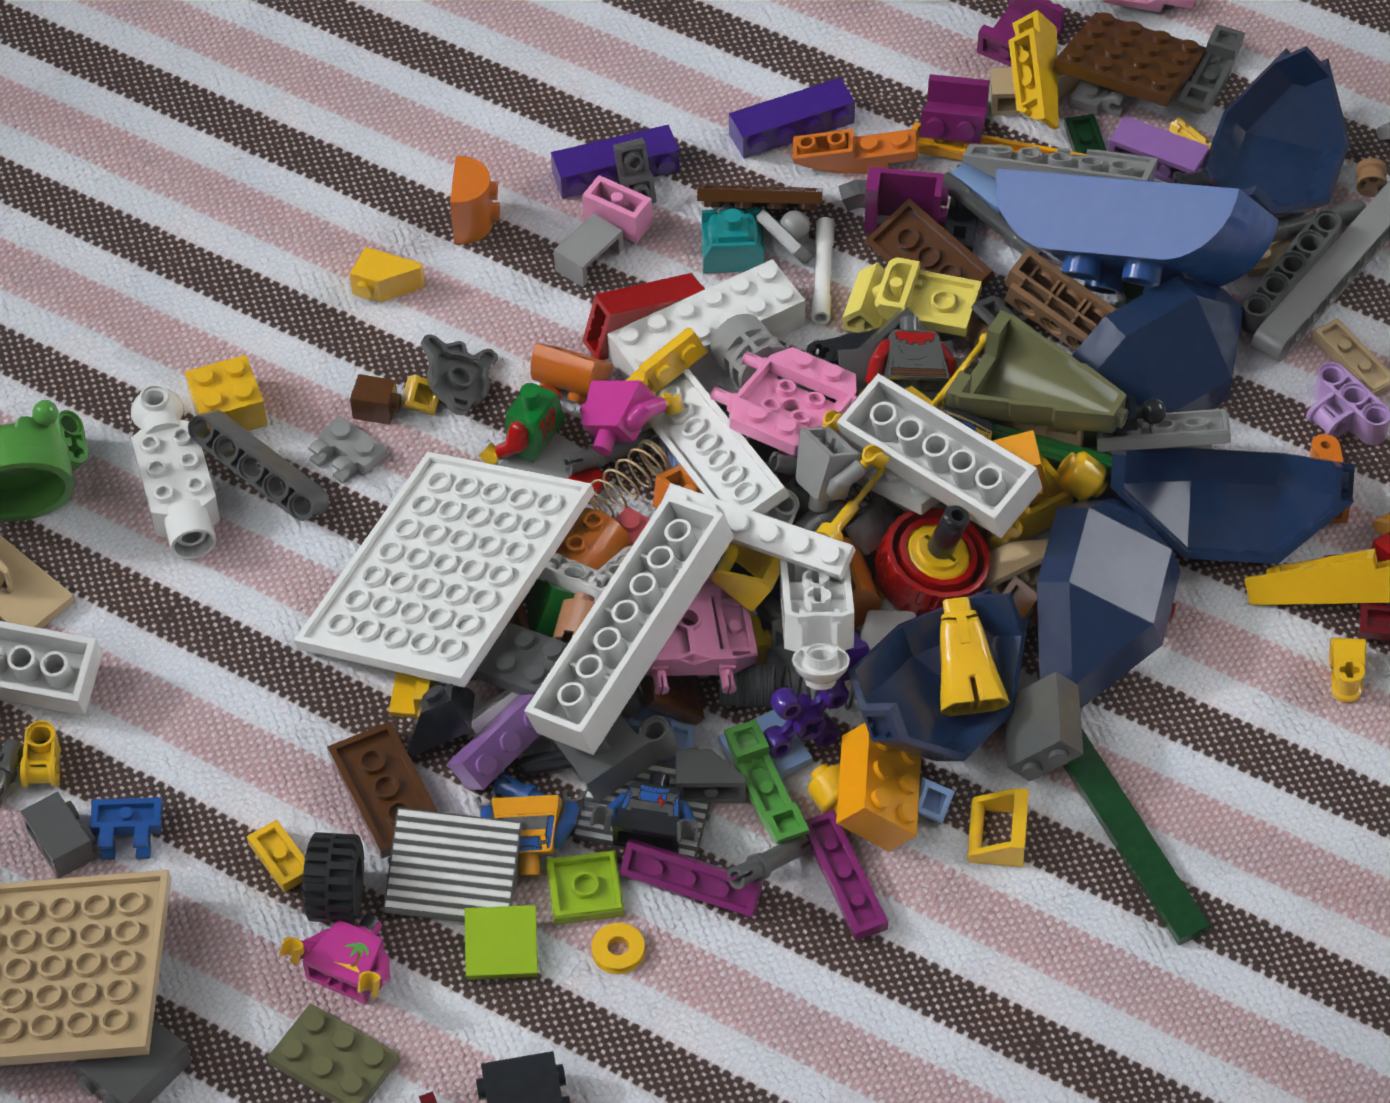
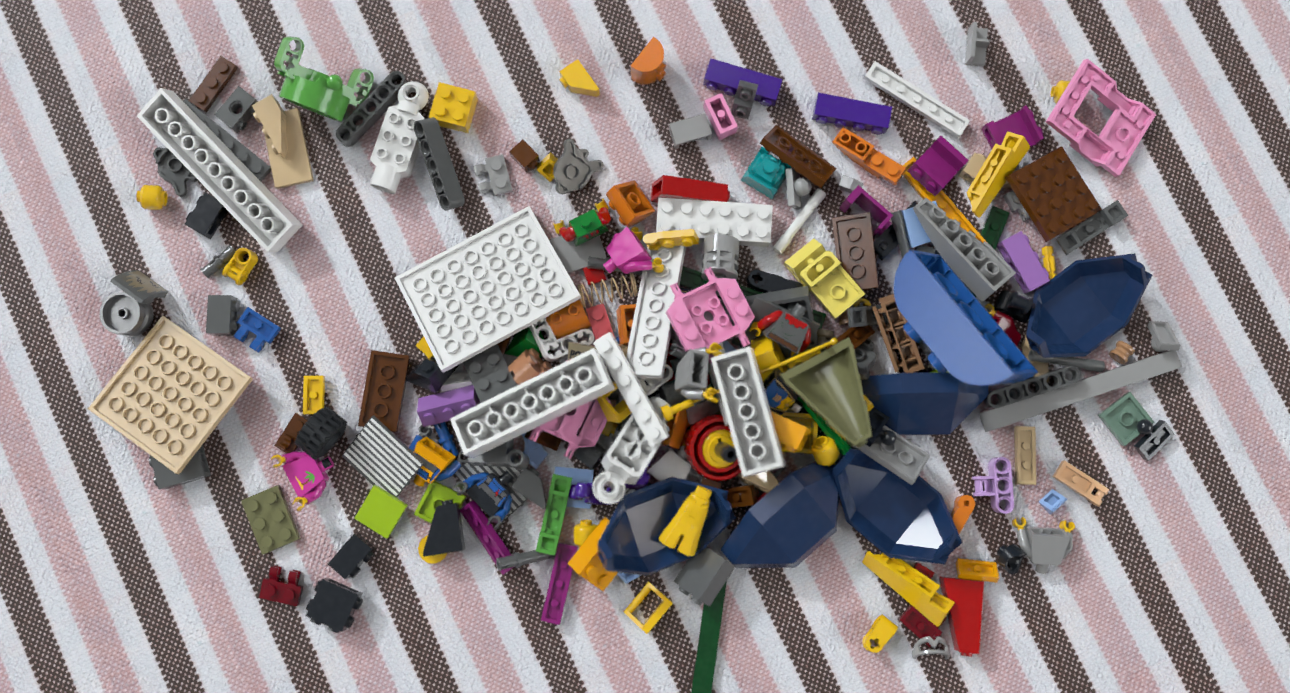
camera: 30 degrees right, 30 degrees up
(103, 465) = (362, 111): none -> dark grey beam
(284, 920) = (287, 439): none -> reddish brown plate
(501, 1022) = (352, 556): none -> black brick
(622, 899) = (445, 530): none -> black slope
(865, 61) = (916, 99): none -> white plate

